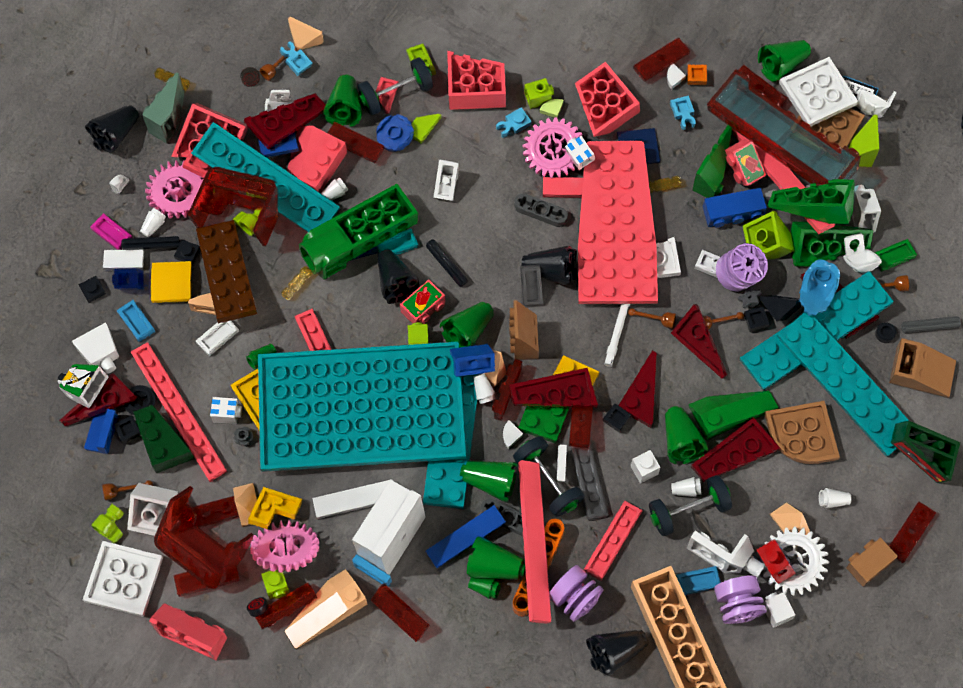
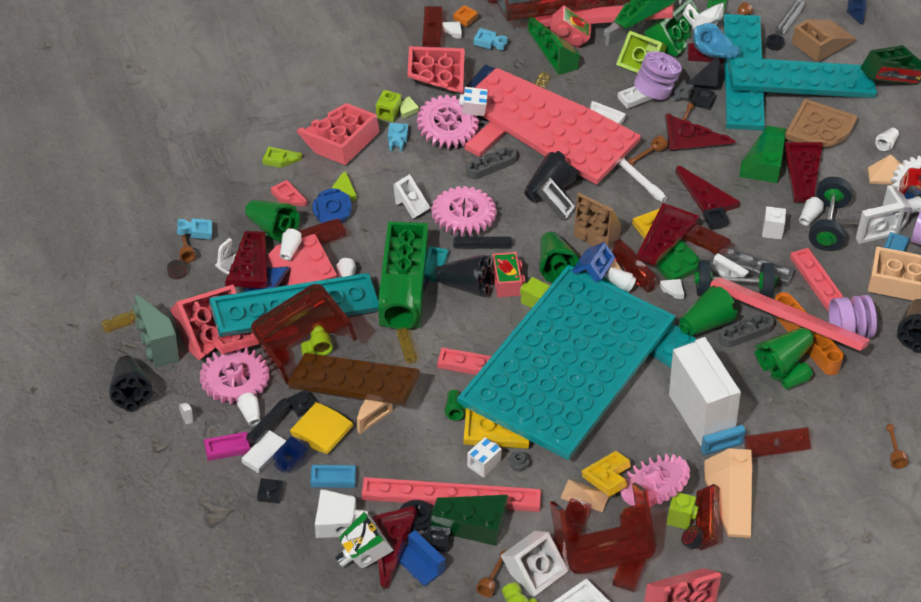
camera: 55 degrees left, 20 degrees down
(217, 337) = (404, 427): white tile -> none
(304, 35) = (176, 209): light nougat slope -> none
(313, 134) = (290, 241): none -> white cone
(348, 500) = (644, 418): white tile -> none
(421, 75) = (300, 159): black axle -> none
(461, 237) = (471, 220): none -> bright pink gear
(465, 536) = (743, 360): blue tile -> none
(682, 437) = (767, 186): green cone -> none
(734, 207) = (599, 57): blue brick -> none

